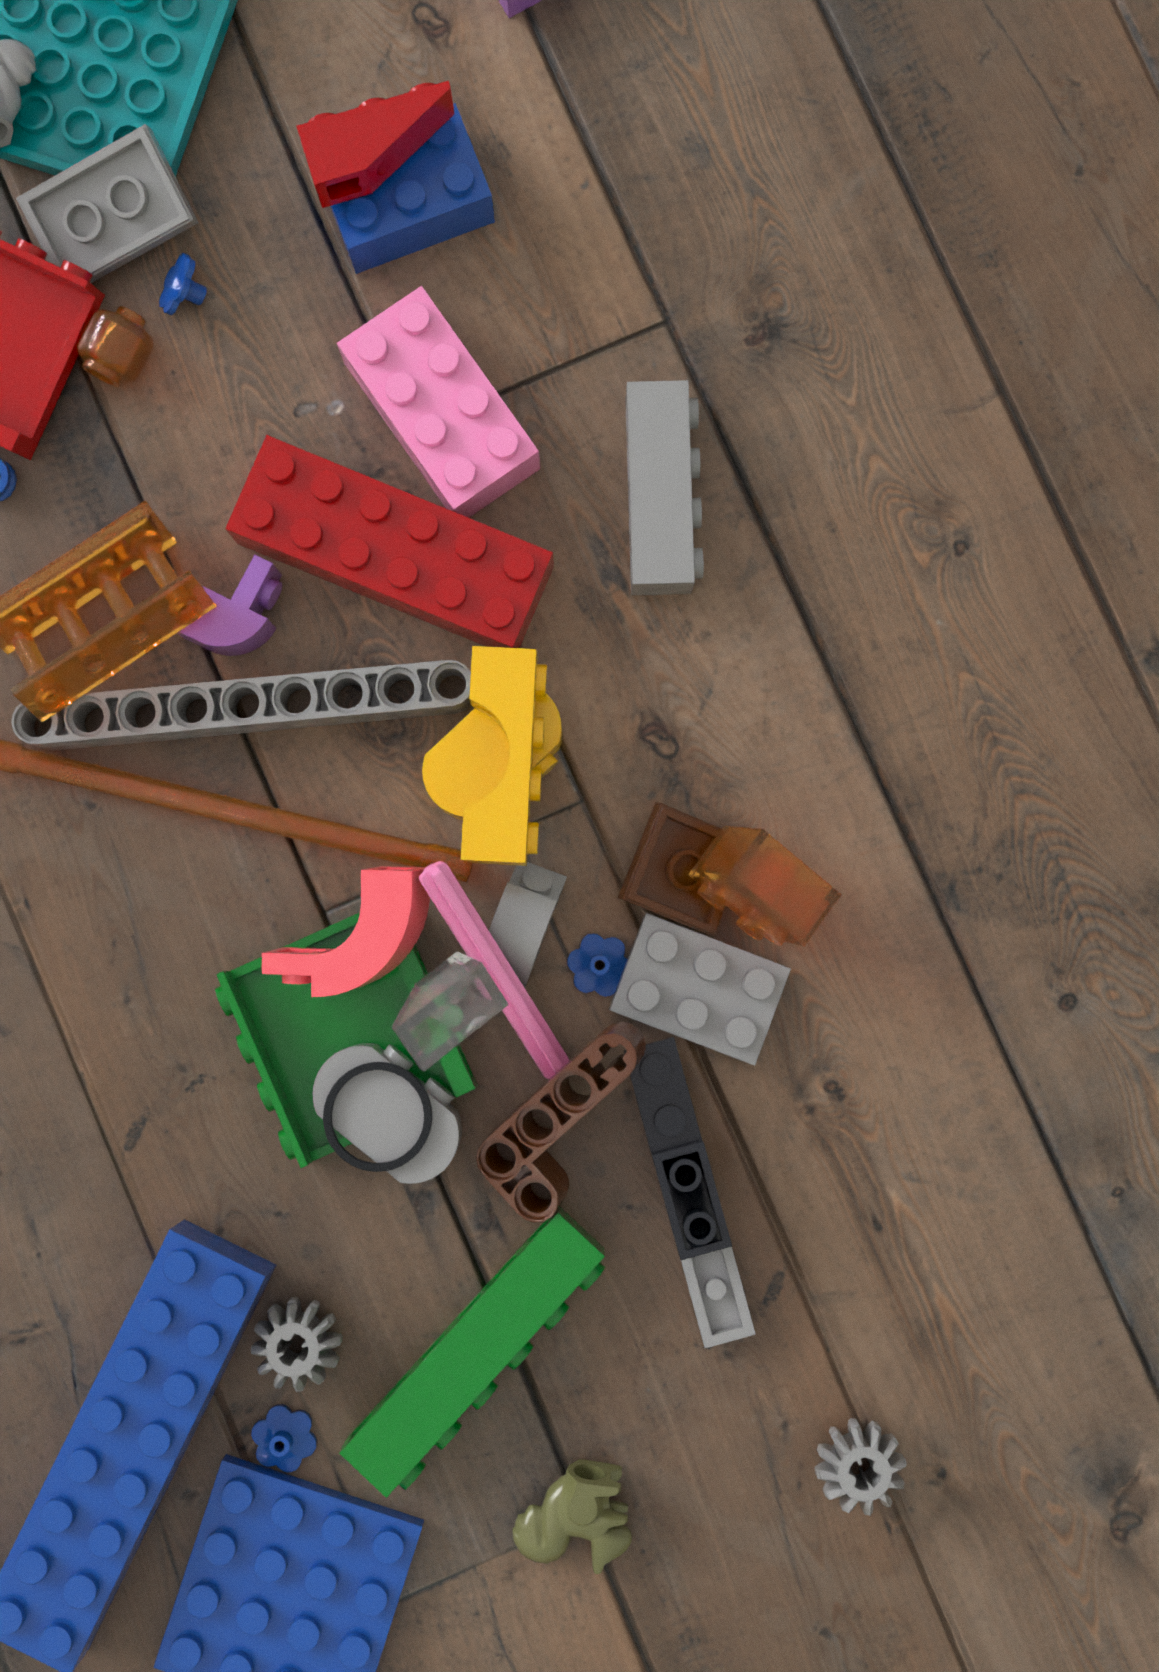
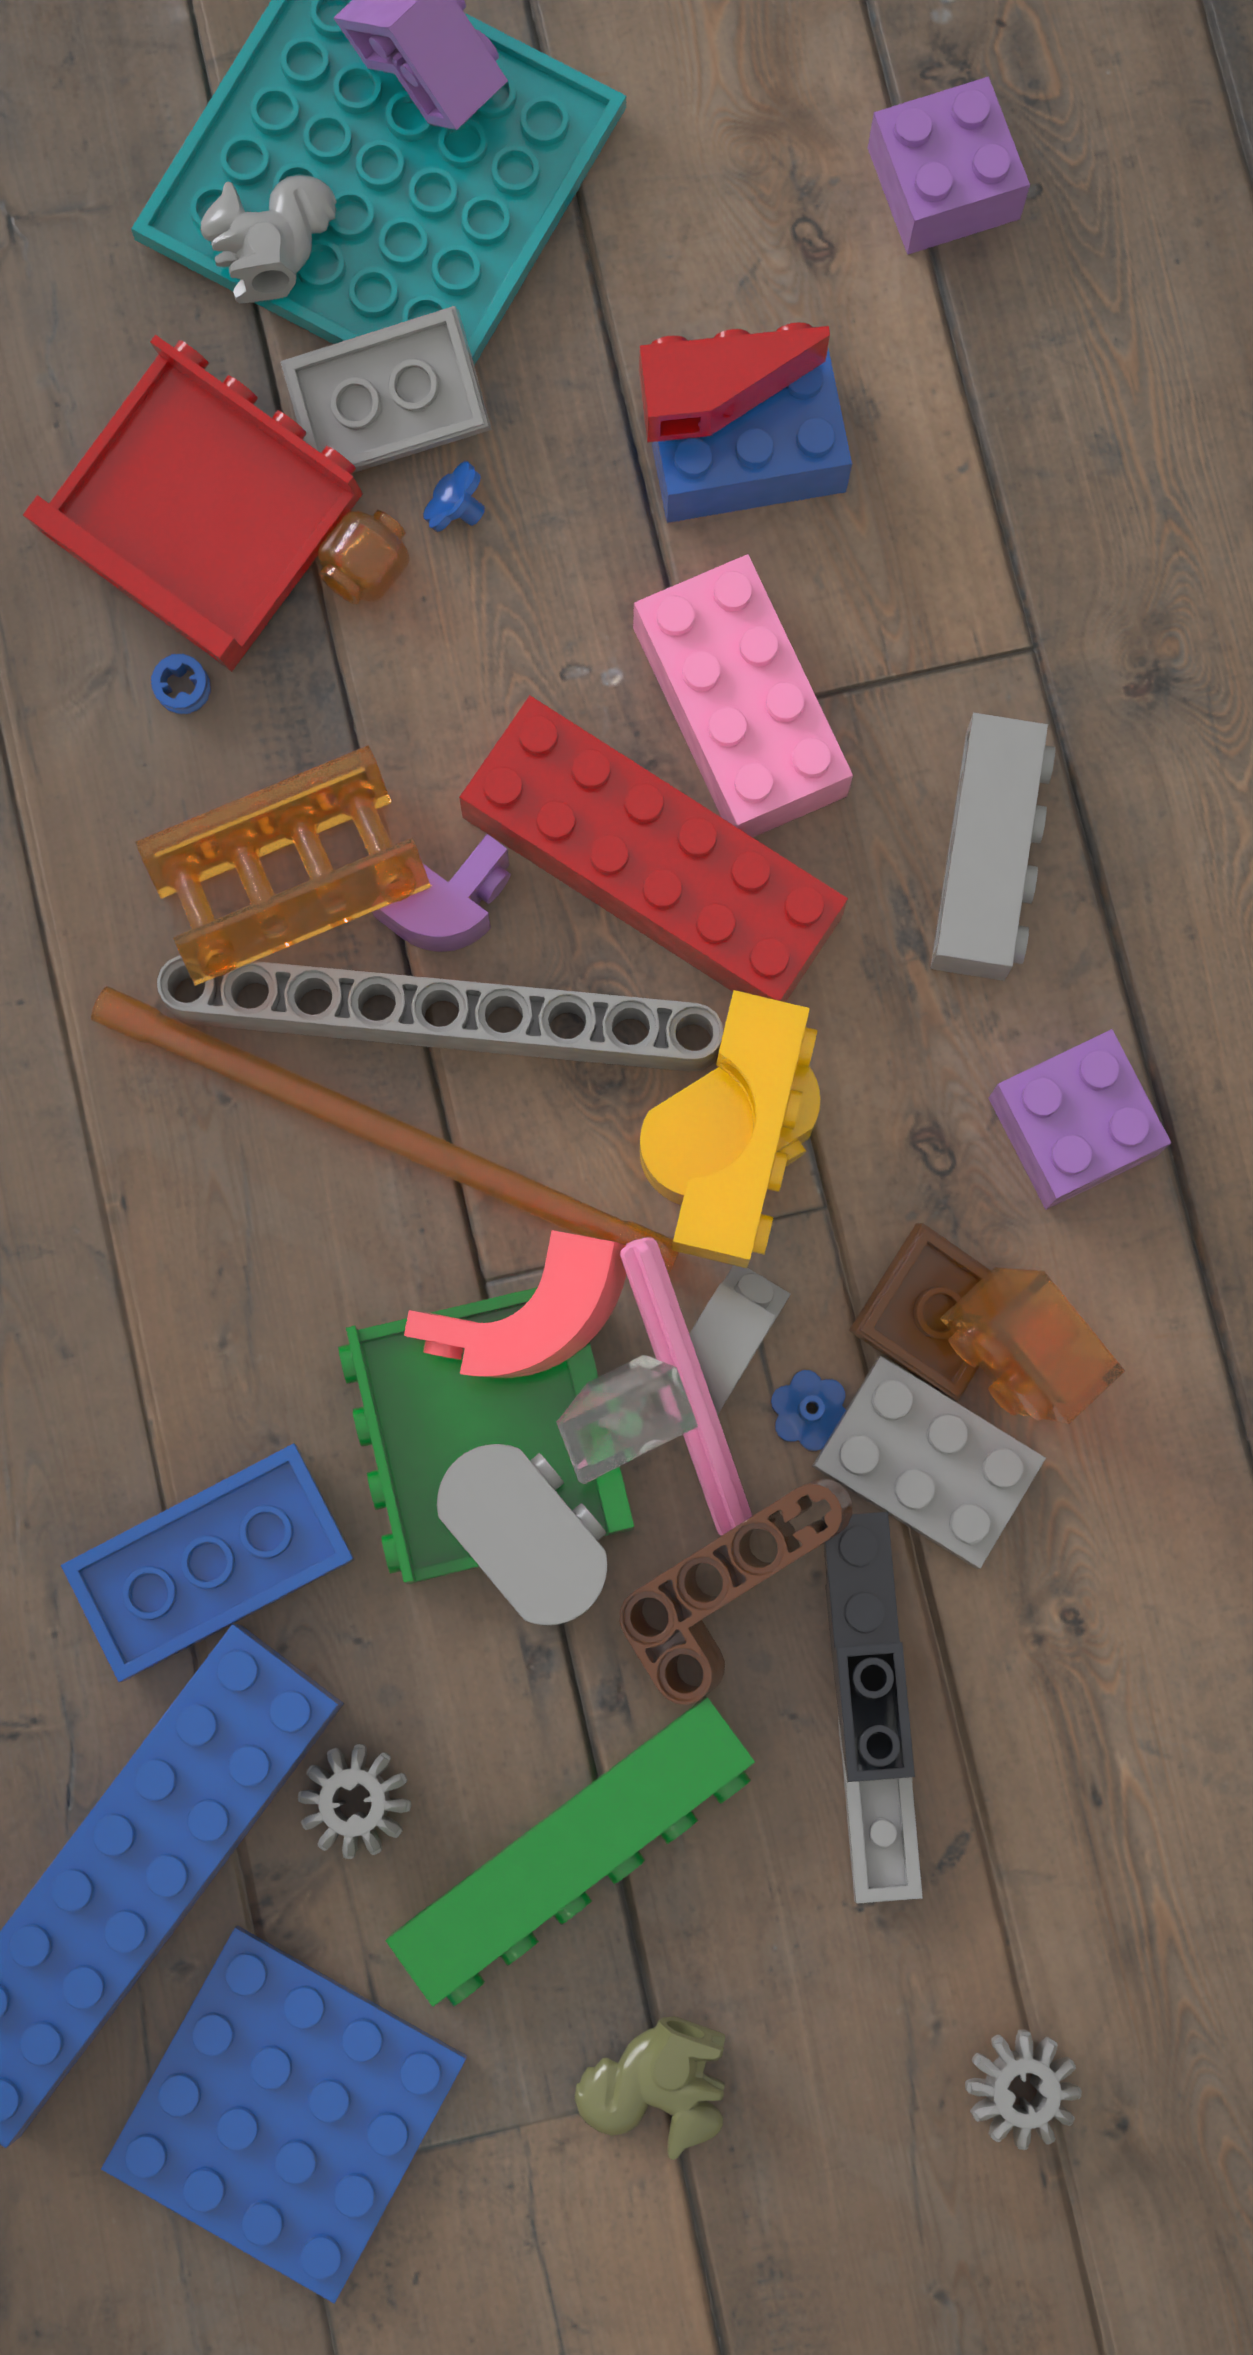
camera: 10 degrees right, 5 degrees down
(145, 1178) = (207, 1562): none -> blue plate
(292, 1430) = (326, 1905): blue plant -> none
(339, 1149) = (451, 1533): black piece -> none
(769, 694) = (1079, 1119): none -> medium lavender brick

